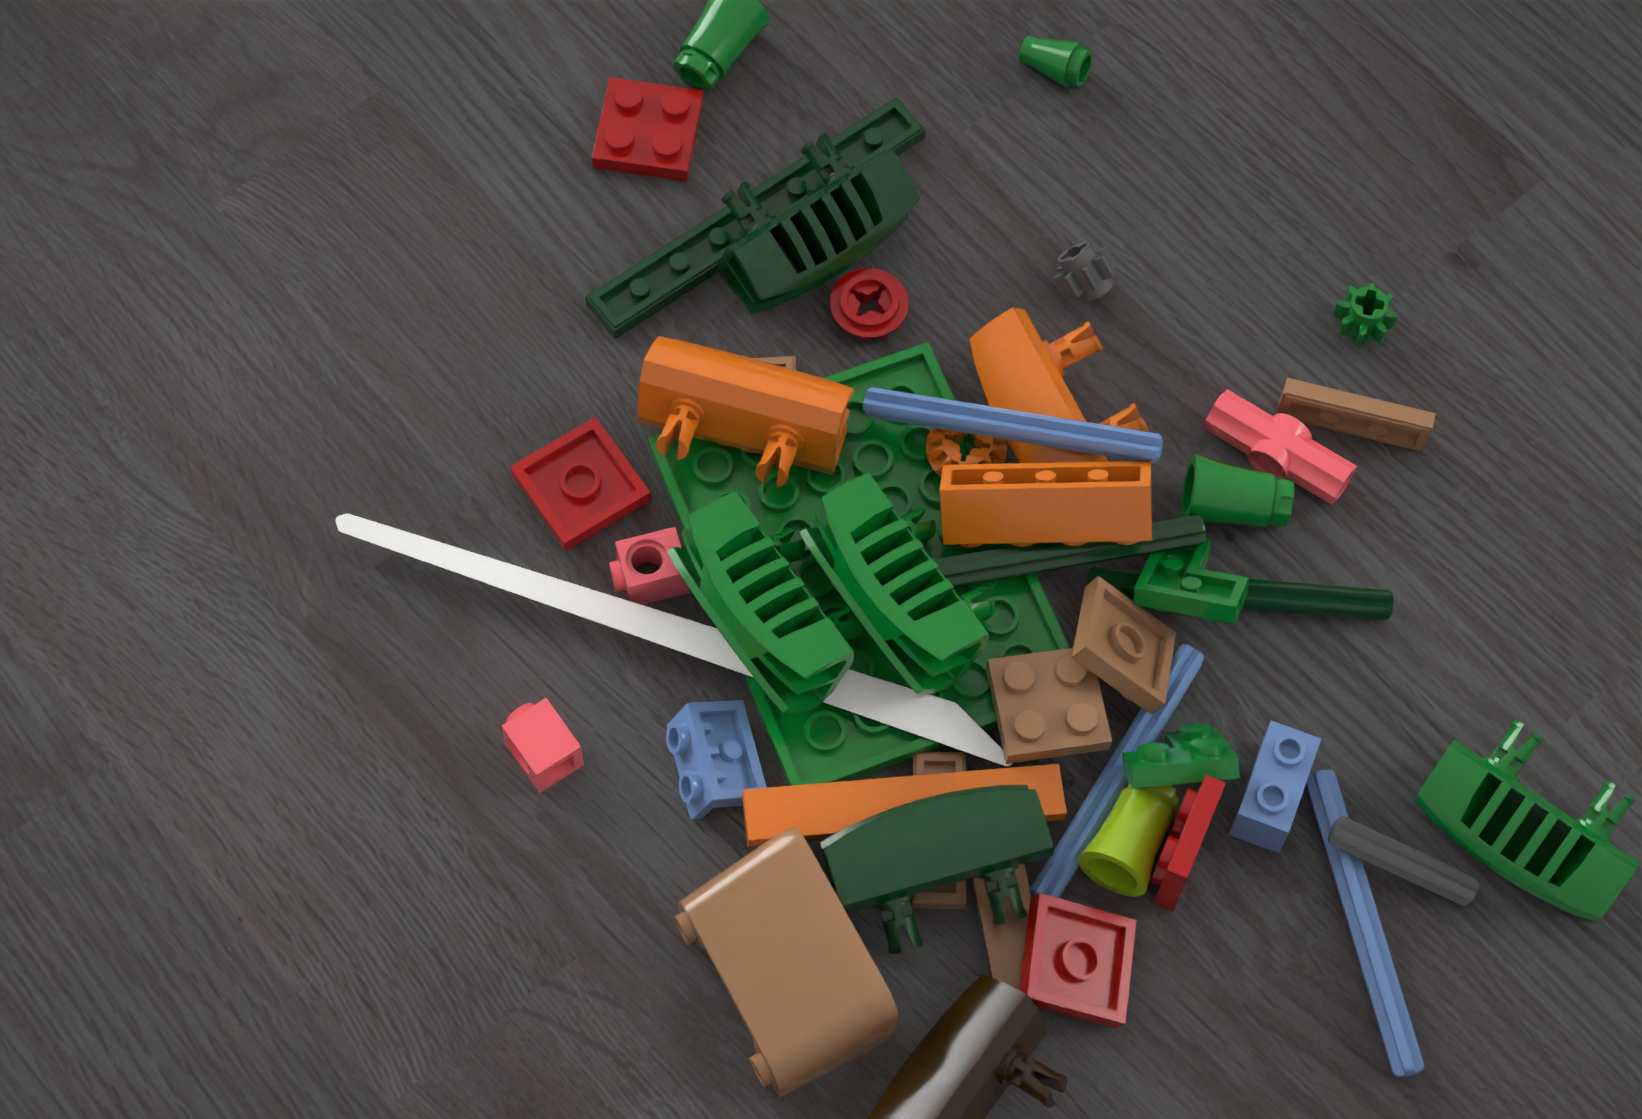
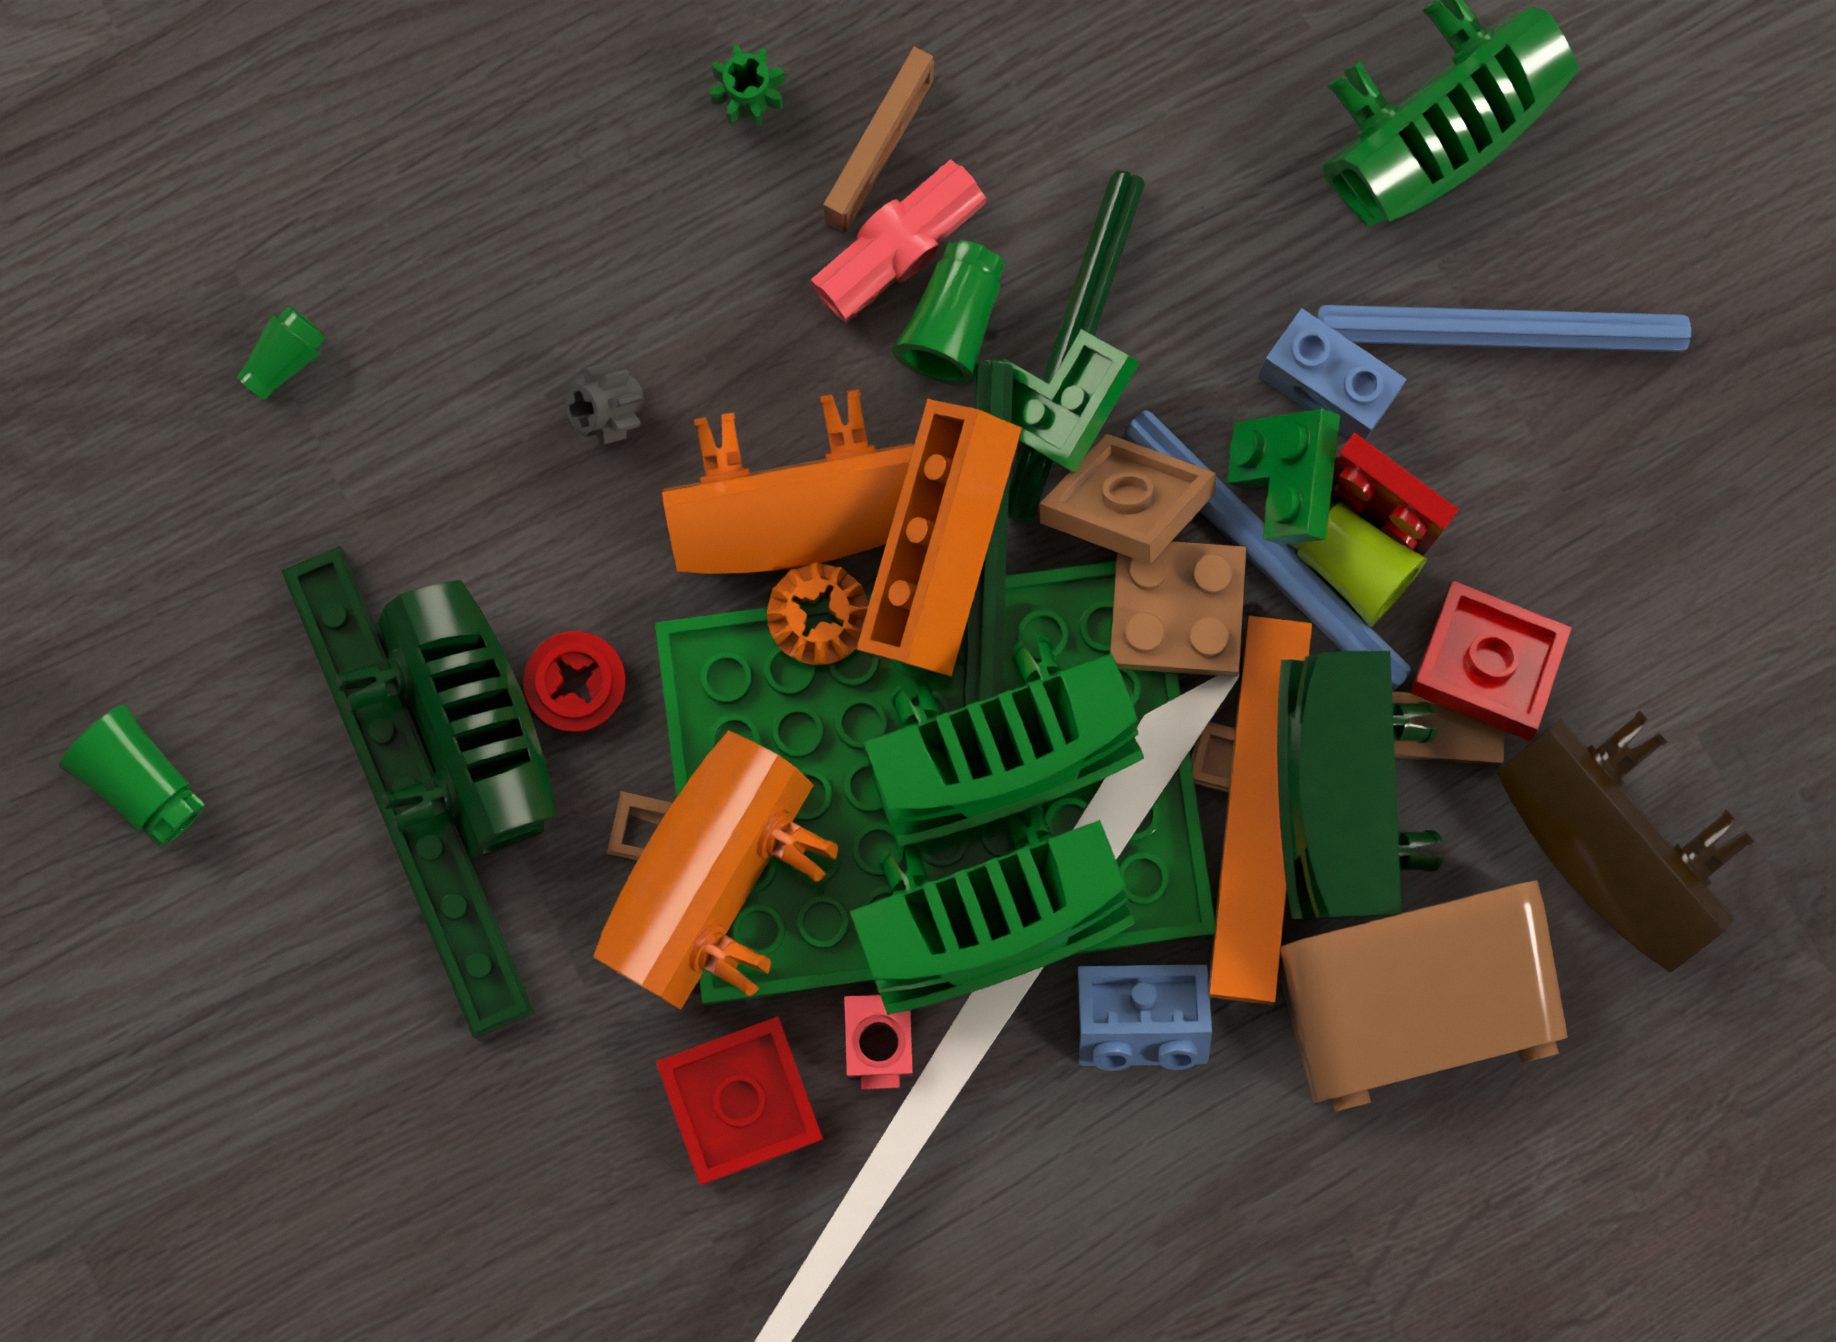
camera: 75 degrees left, 15 degrees up
(542, 744) = (1079, 1223): coral brick -> none
(648, 129) = (239, 901): red plate -> none
(1013, 425) = (826, 551): medium blue axle -> none
(1403, 861) = (1451, 263): dark grey axle -> none

